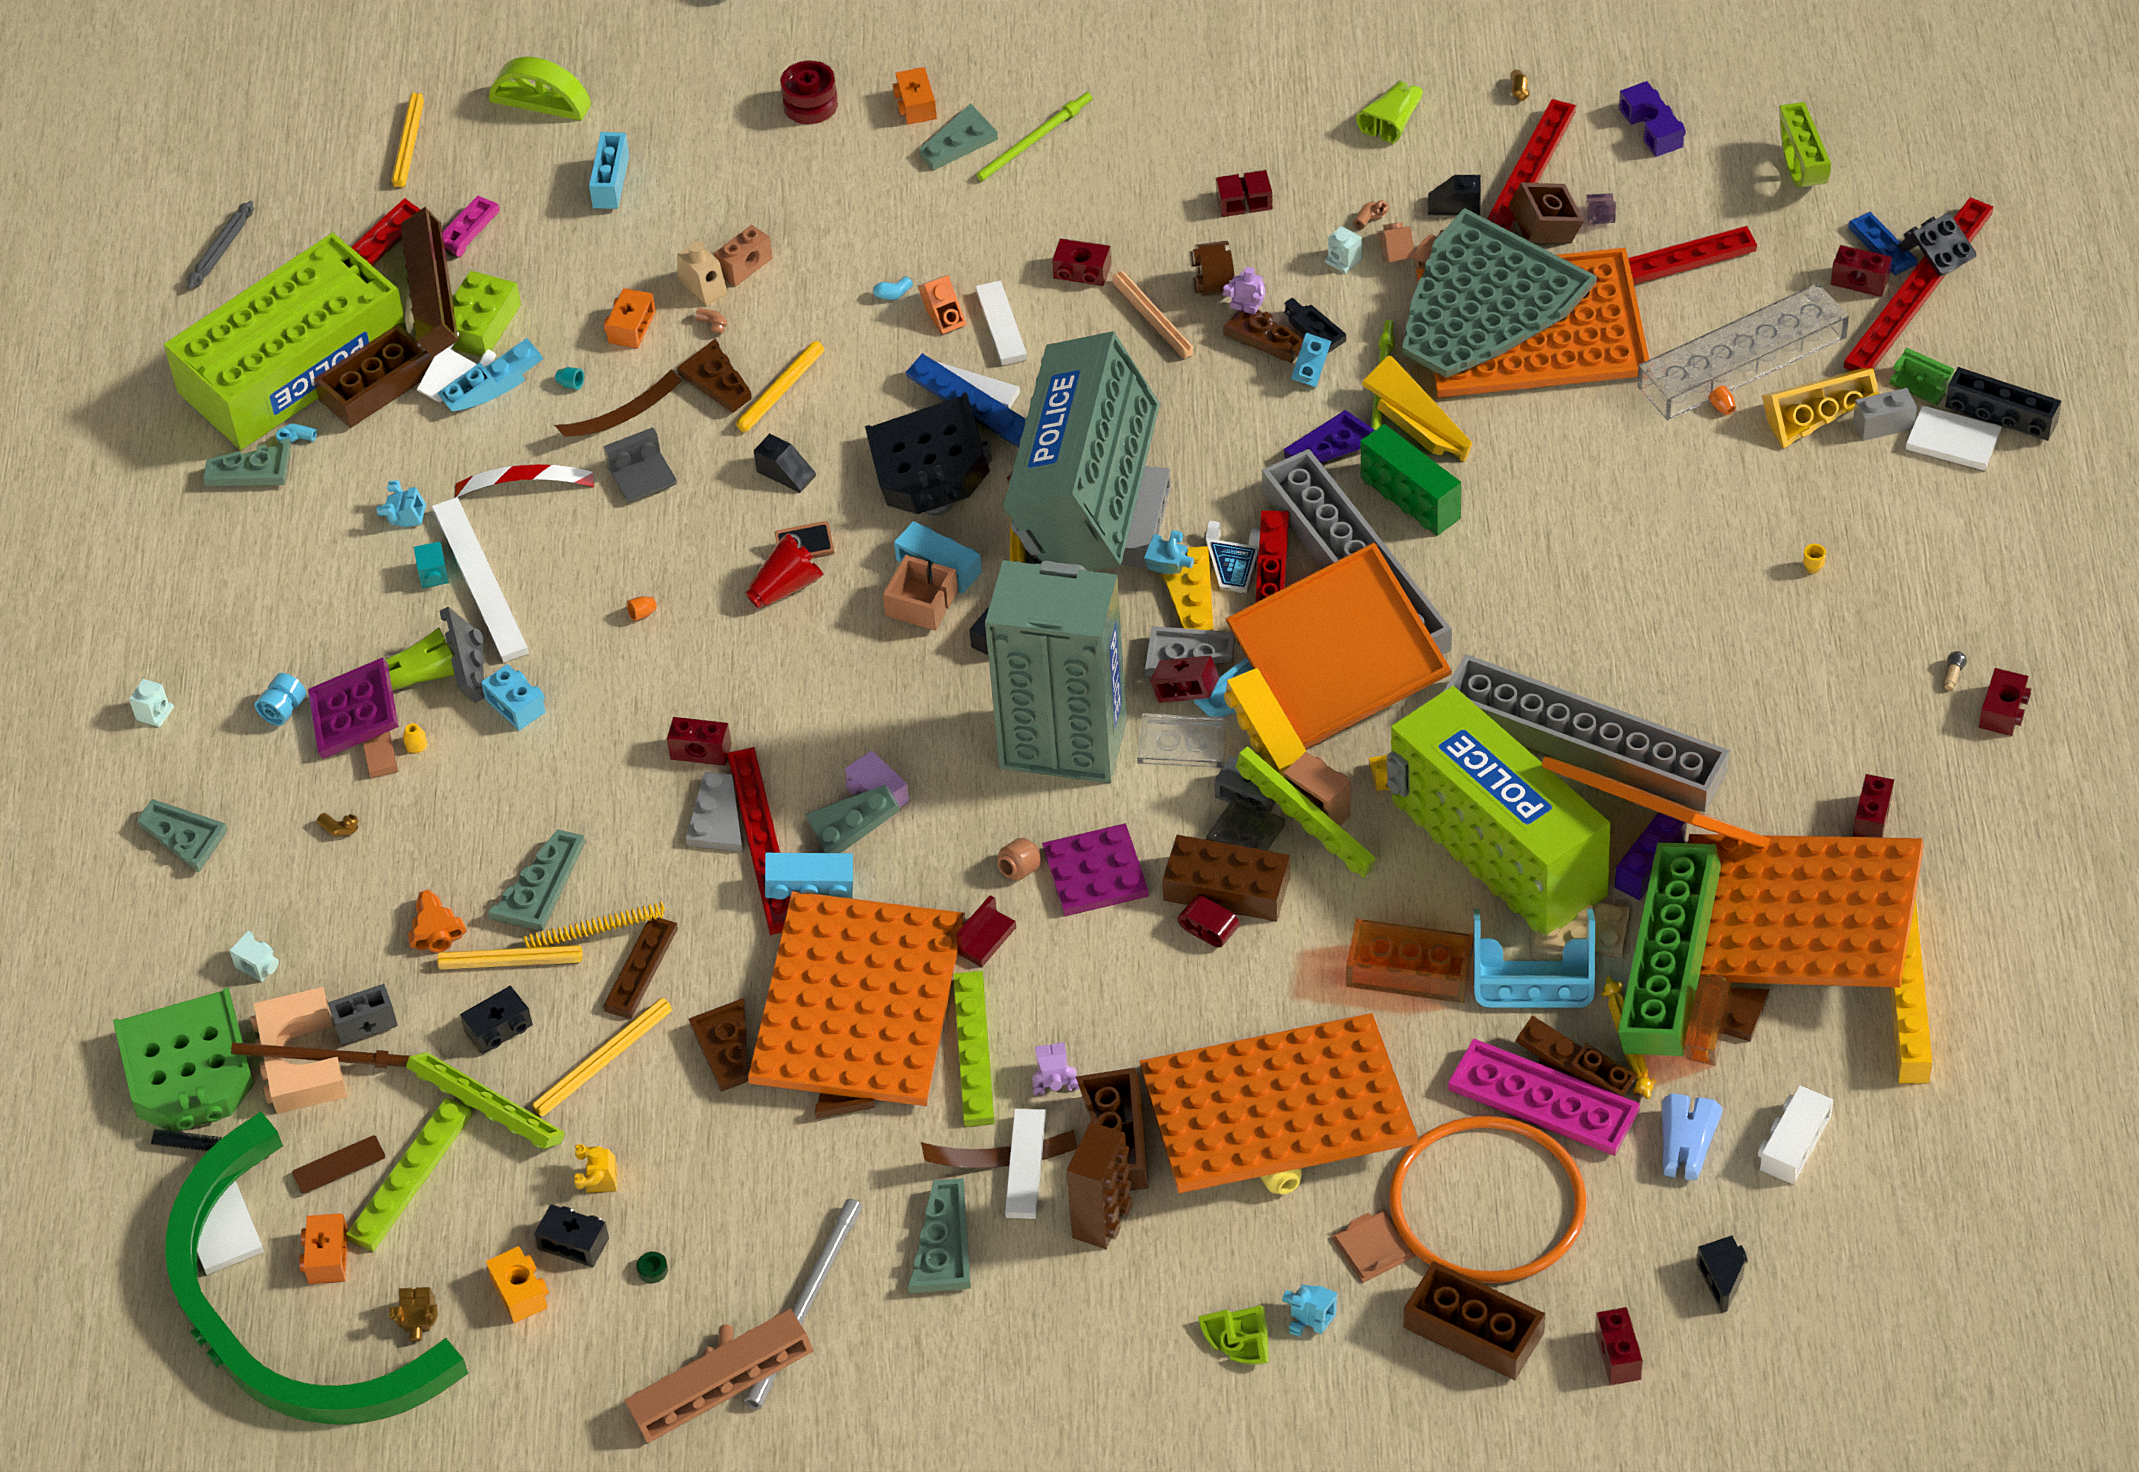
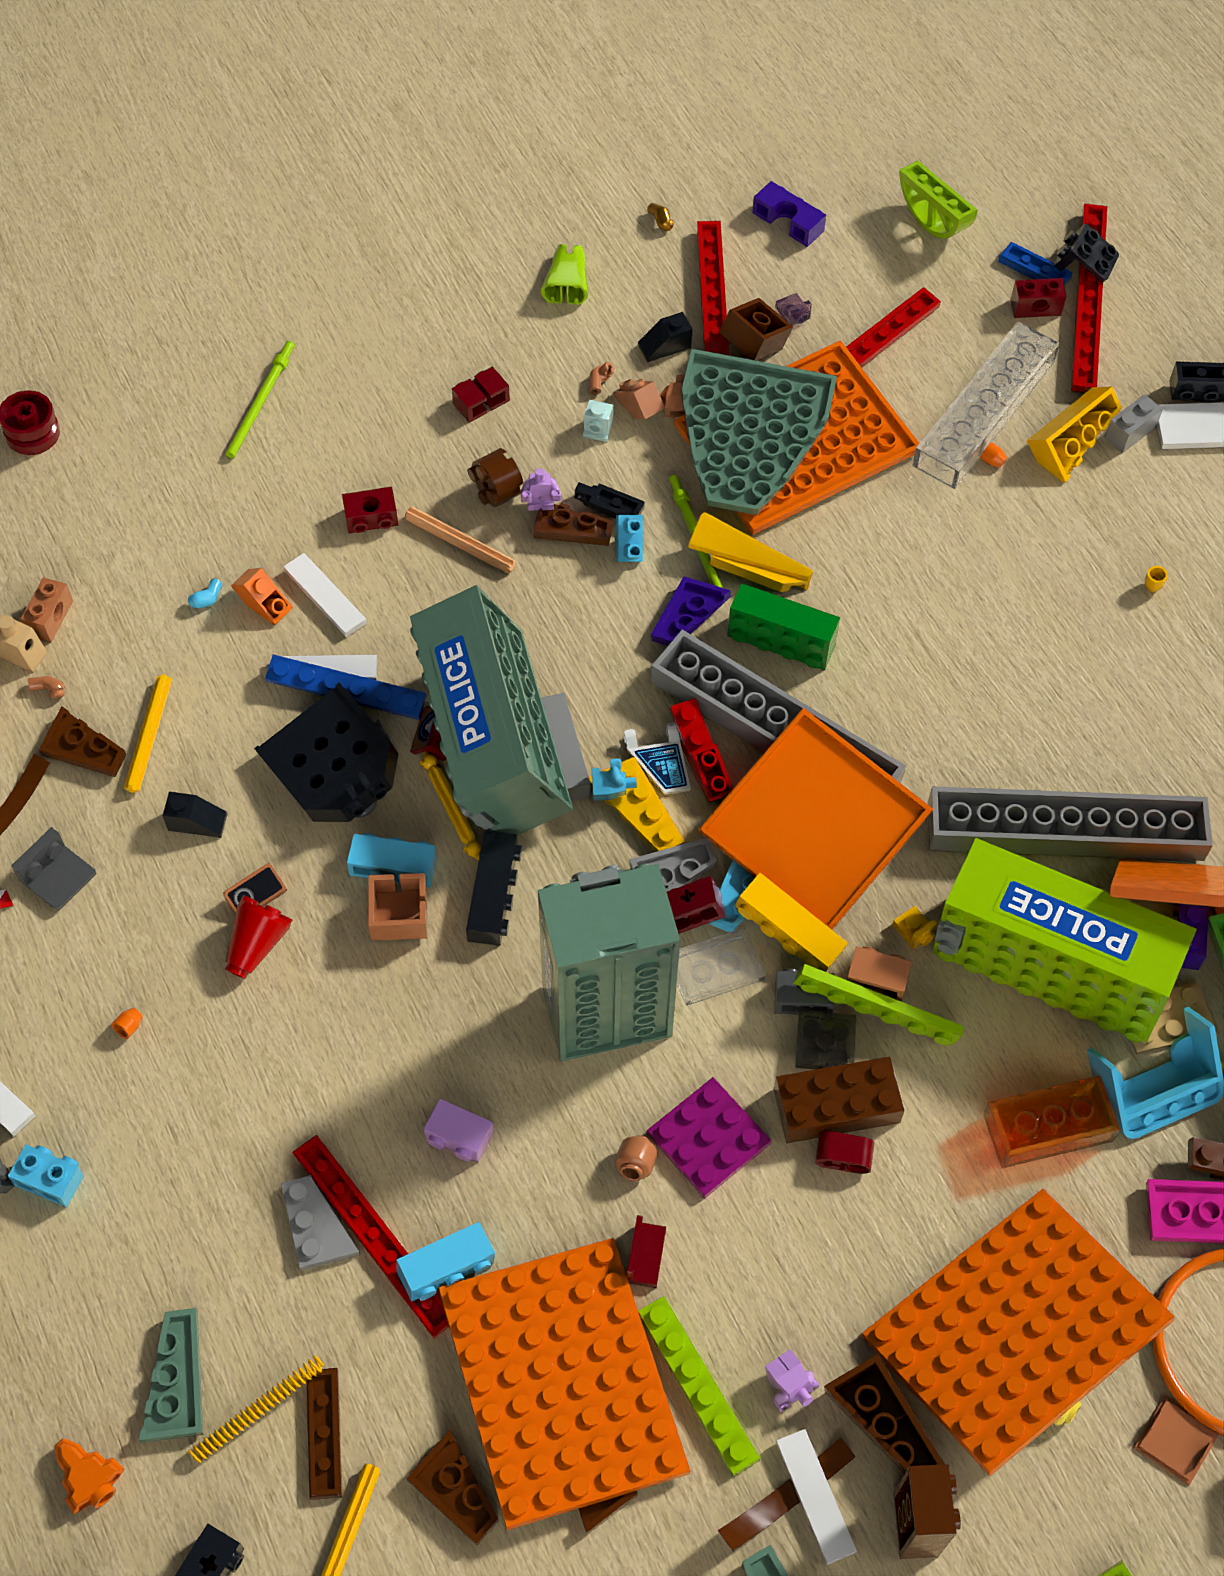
camera: 30 degrees left, 10 degrees up
(509, 957) = (183, 1481): yellow axle -> none
(699, 741) = (260, 1152): dark red brick -> none
(852, 818) = (456, 1181): sand green wing -> none
(915, 96) = (130, 394): orange brick -> none
(958, 138) = (190, 423): sand green wing -> none
(1311, 1307) = (1168, 1541): medium azure piece -> none
(1922, 376) = (1140, 377): bright green hinge -> none

